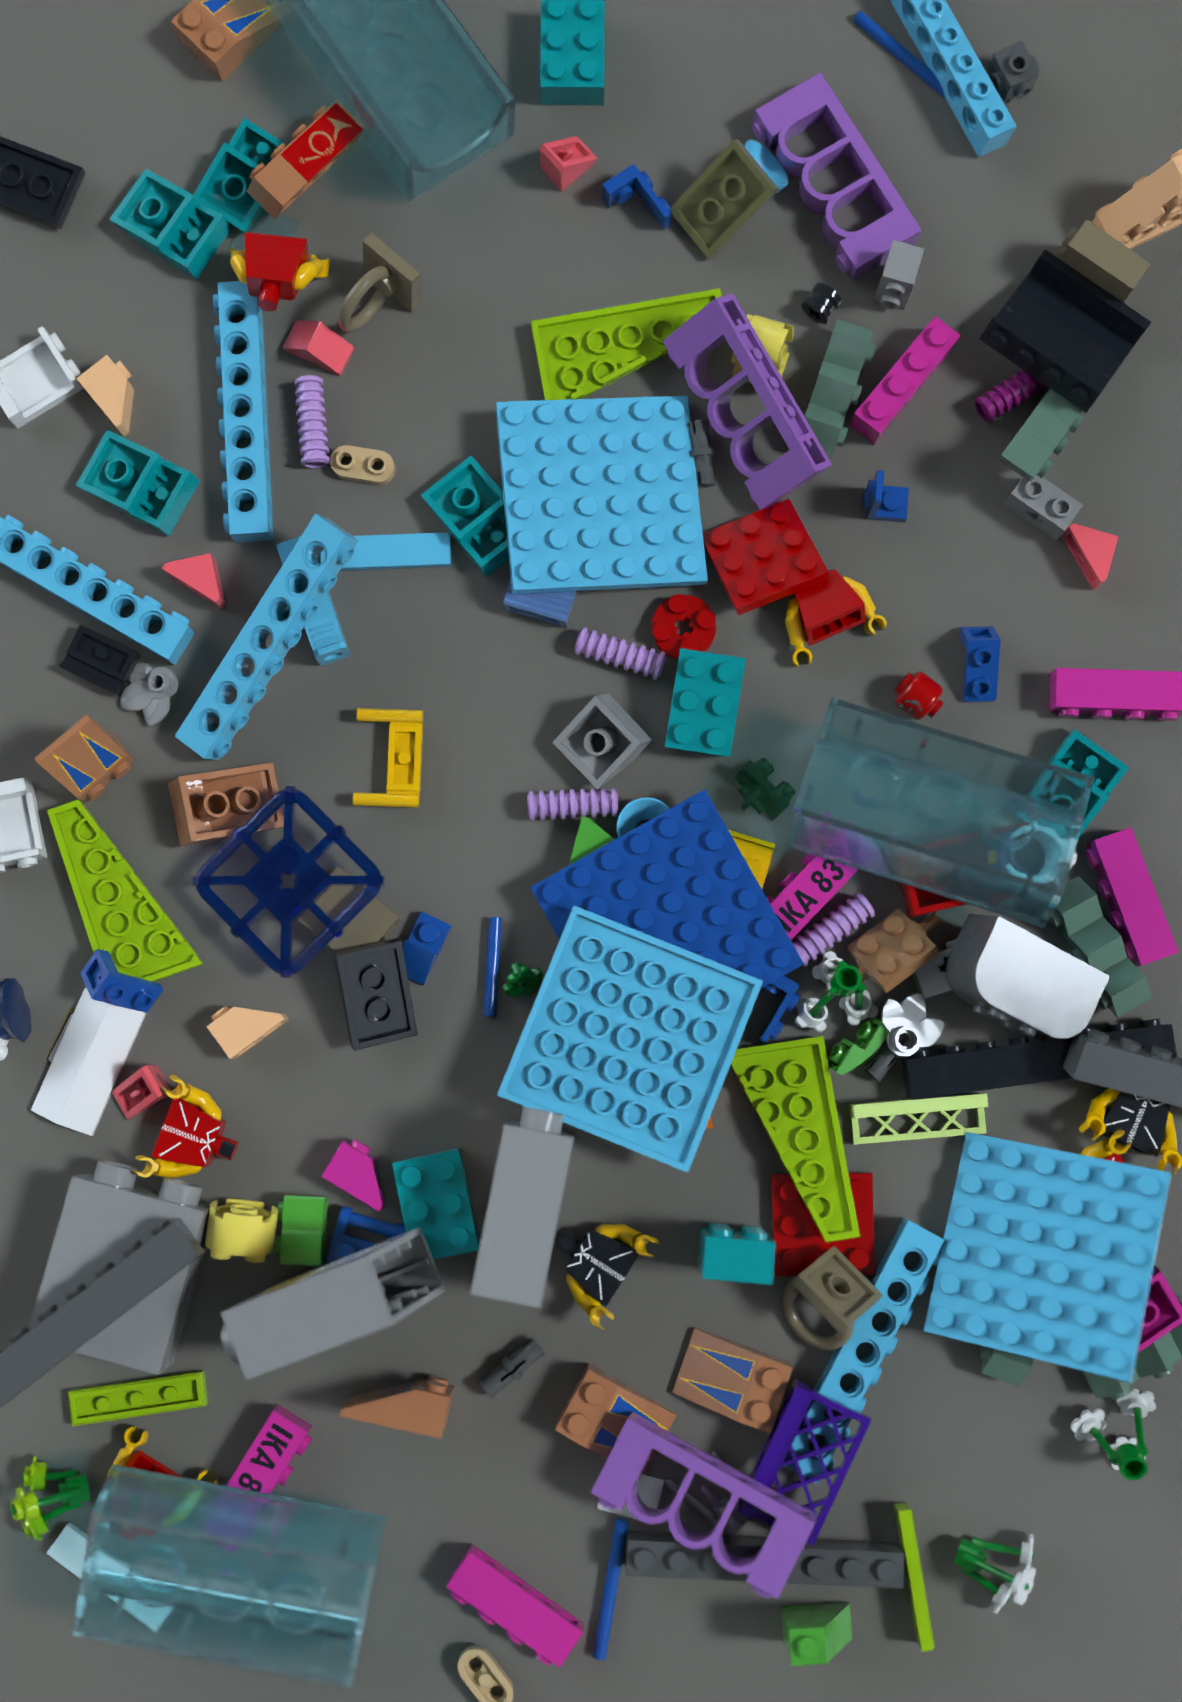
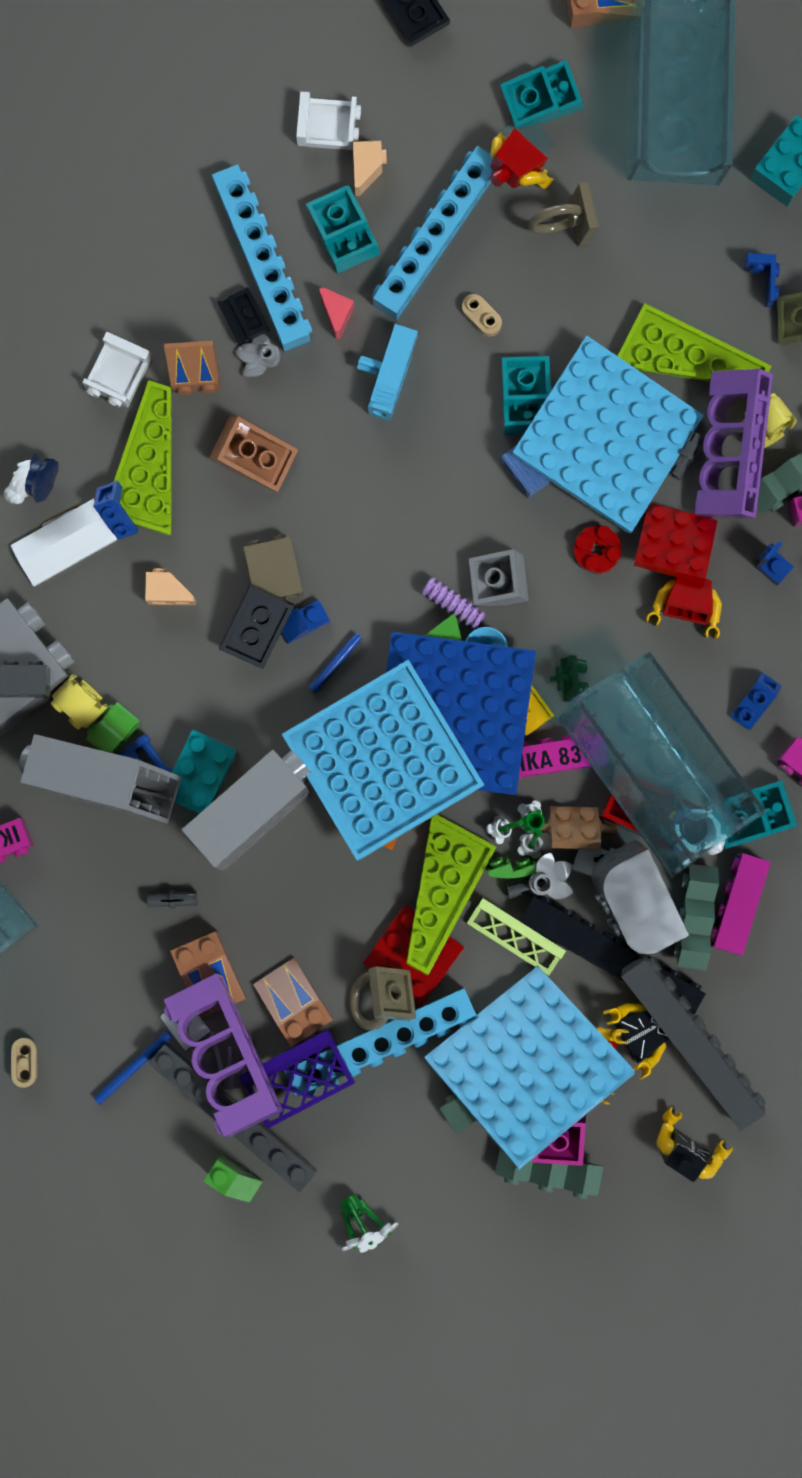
camera: 35 degrees right, 0 degrees up
(141, 1091) = (81, 581): coral slope -> none
(171, 223) = (477, 91): teal slope -> none
(188, 1135) = (89, 627): torso -> none
(267, 618) = (335, 371): medium azure brick -> none
(305, 159) = (584, 110): brick -> none
(310, 881) = (266, 534): clear blue plate -> none
(311, 421) = (471, 267): lavender piece -> none
(318, 345) = (509, 226): coral slope -> none
(356, 1173) = (168, 721): dark pink slope -> none
(400, 551) = (456, 375): medium azure tile -> none
(403, 758) = (375, 503): yellow plate -> none
(411, 1406) = (102, 878): nougat slope -> none
(515, 1606) = (72, 1034): dark pink brick -> none
(522, 980) = (346, 683): green plant -> none
(565, 160) = (738, 223): coral slope -> none
(601, 1264) = (268, 879): torso -> none
(619, 653) = (548, 536): lavender piece -> none
(705, 702) = (575, 601): teal brick -> none
(736, 1254) = (348, 929): teal brick -> none
(788, 1002) = (497, 802): blue bracket -> none
(833, 928) = (549, 789): lavender piece -> none
(914, 1577) = (311, 1193): lime tile -> none
(918, 695) = (705, 692): red head -> none
(1125, 1454) = (487, 1219): plant -> none

